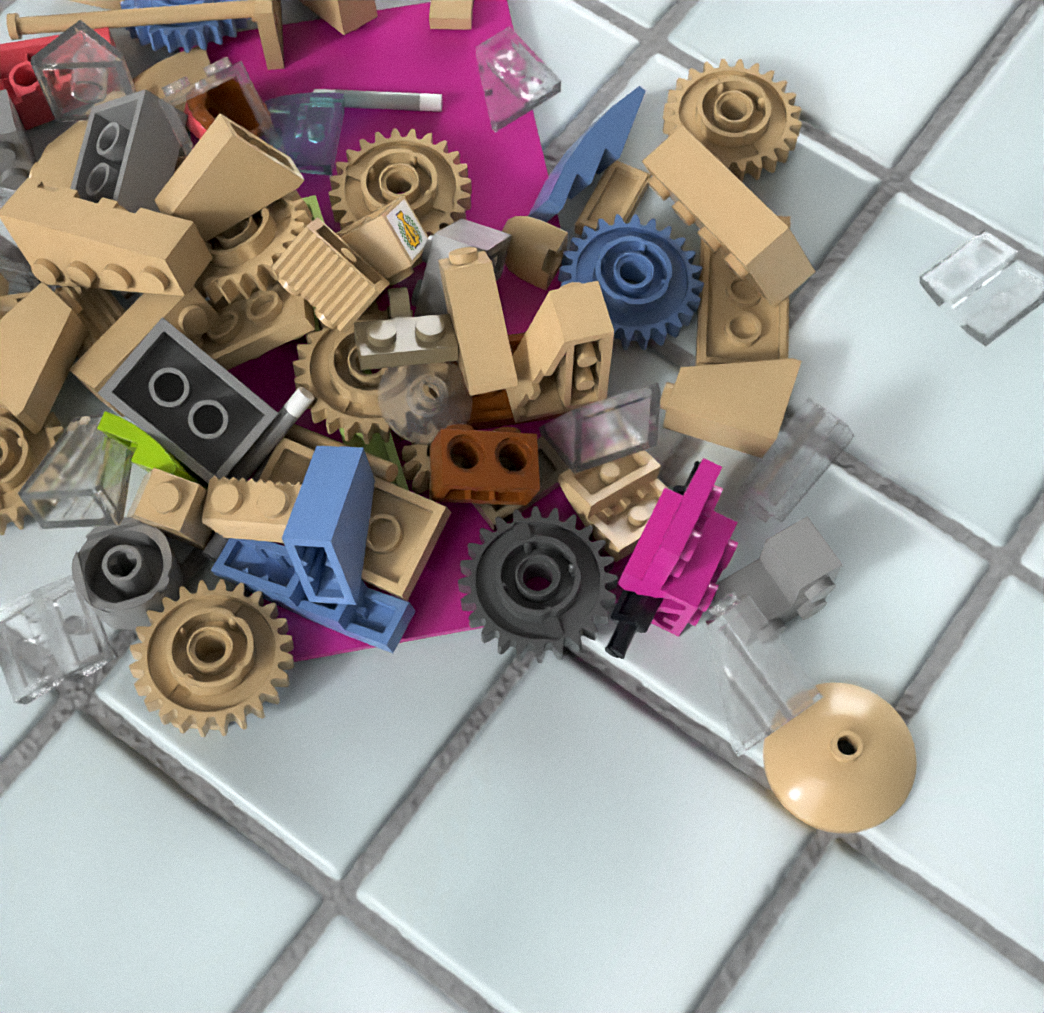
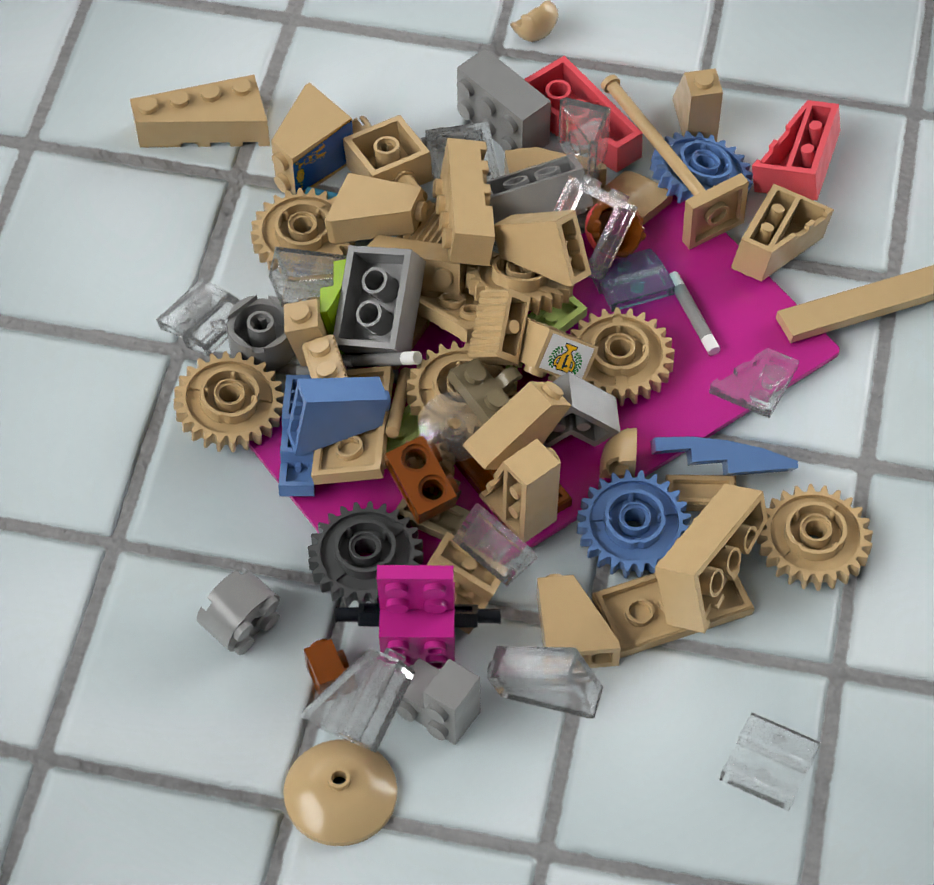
camera: 65 degrees right, 10 degrees down
(549, 770) = (239, 610): none -> light grey brick
(670, 698) = (324, 663): none -> dark orange brick

